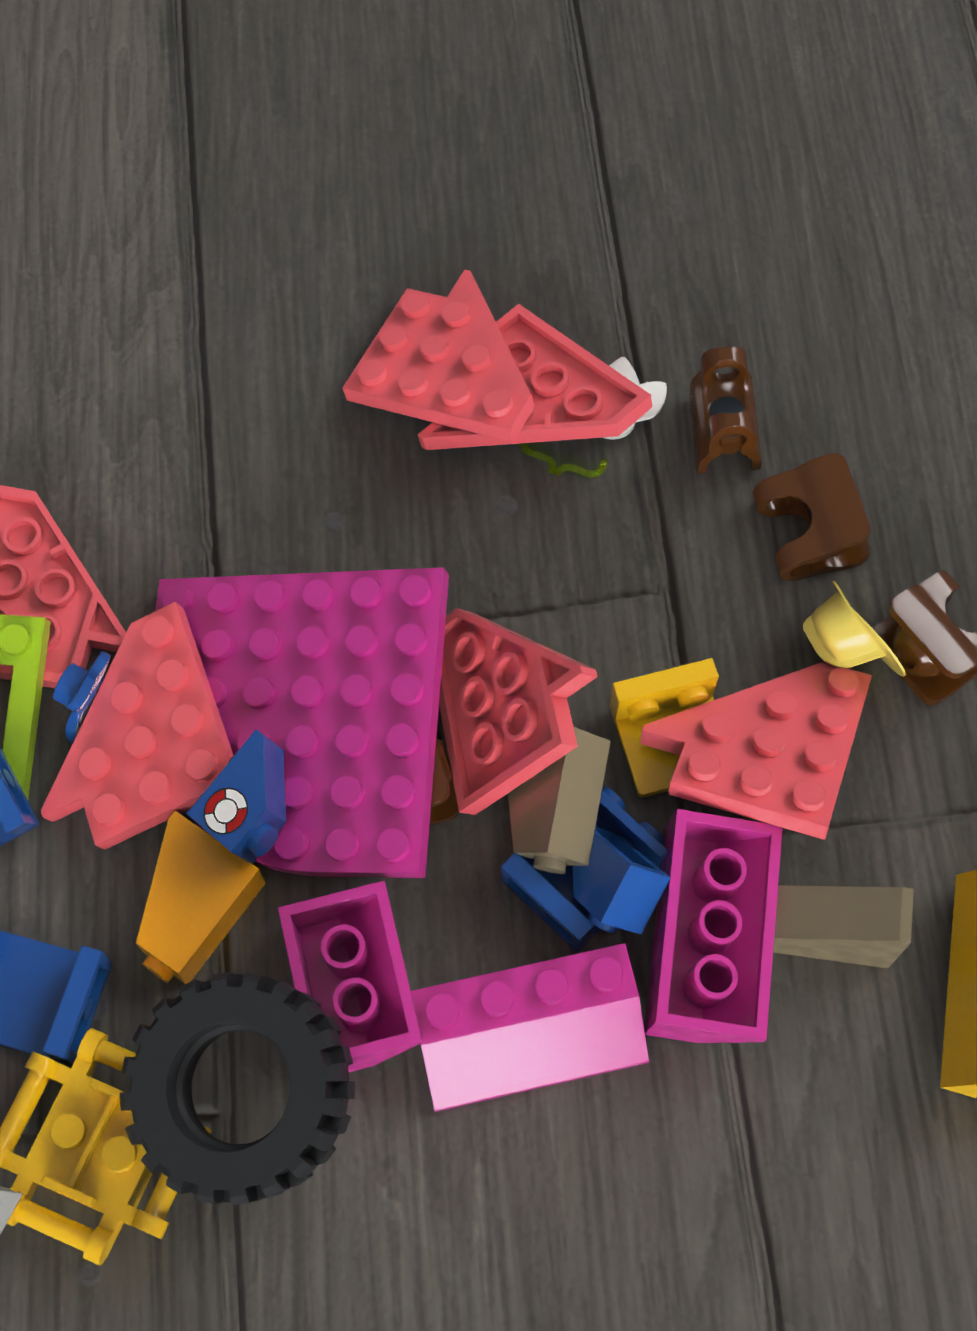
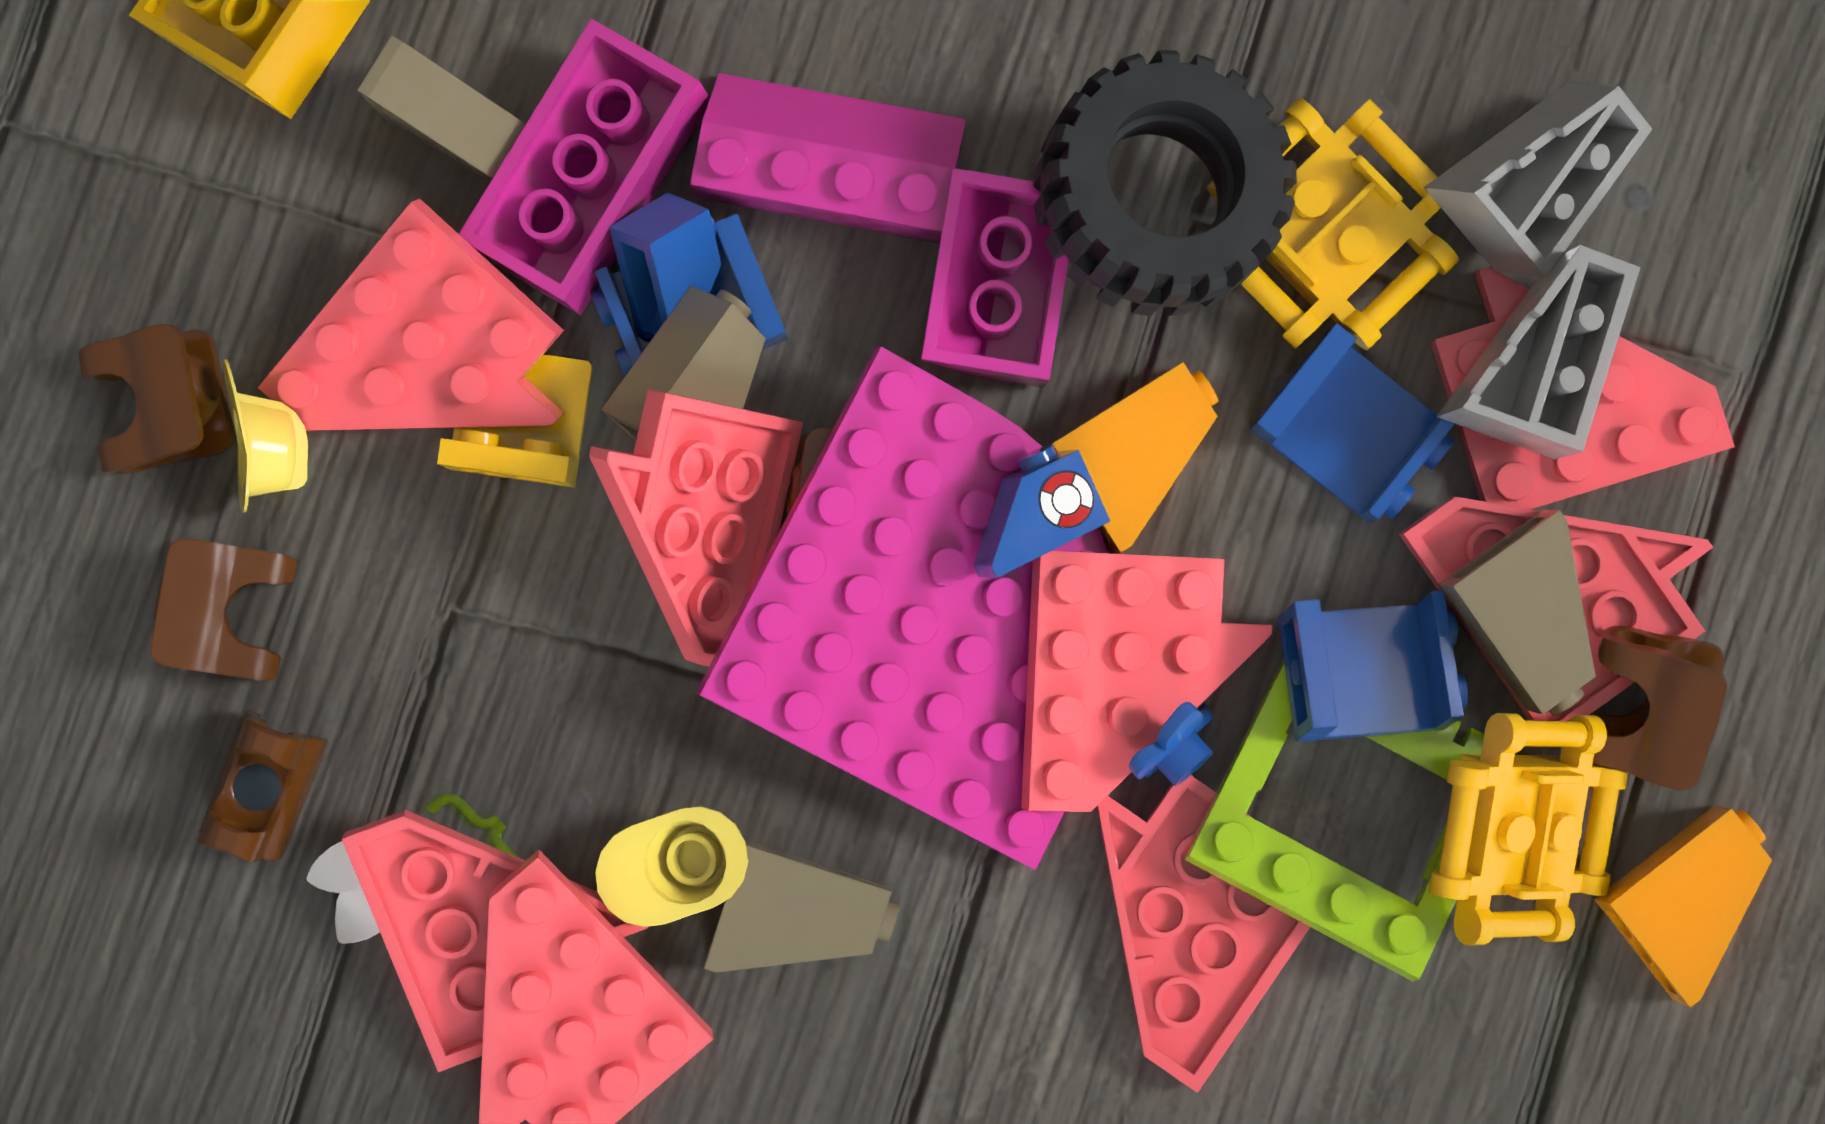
camera: 155 degrees left, 20 degrees up
(316, 488) = (798, 914): none -> dark tan slope
(417, 474) = (671, 866): none -> light yellow piece

